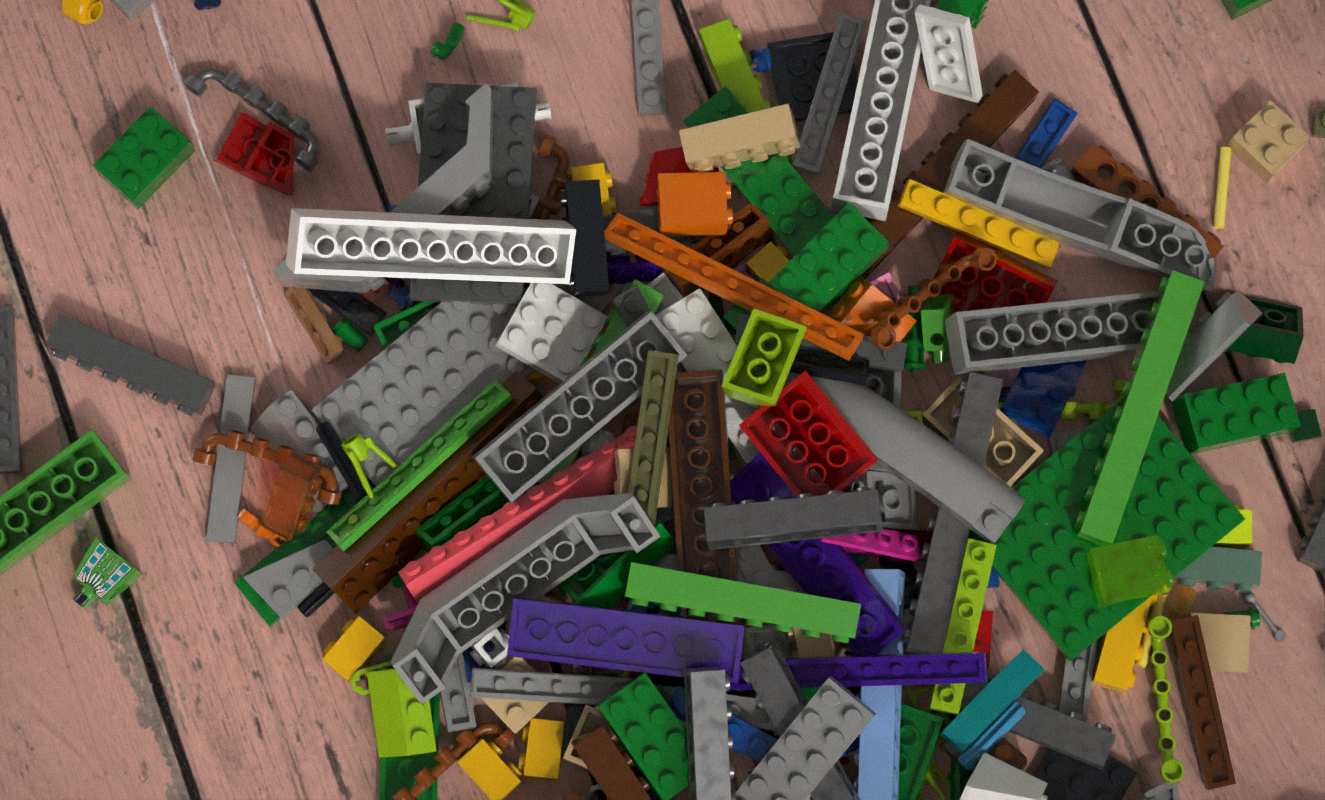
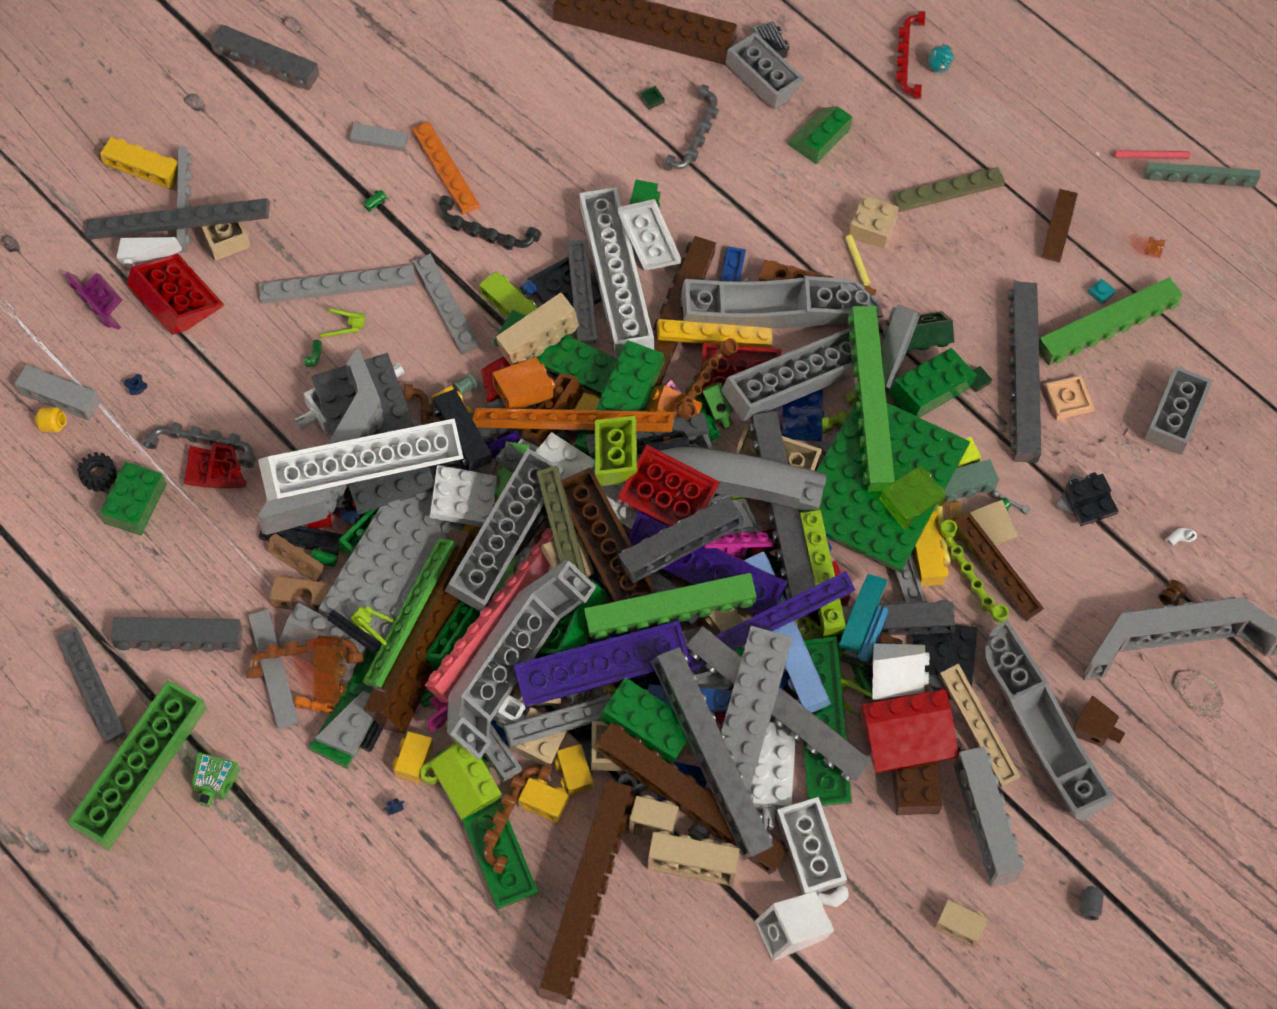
camera: 25 degrees left, 15 degrees down
(109, 85) = (97, 461): none -> black tyre
(285, 362) = (287, 590): none -> medium nougat arch
(305, 703) = (394, 806): none -> dark blue plate
(623, 165) = (465, 384): none -> sand green bush

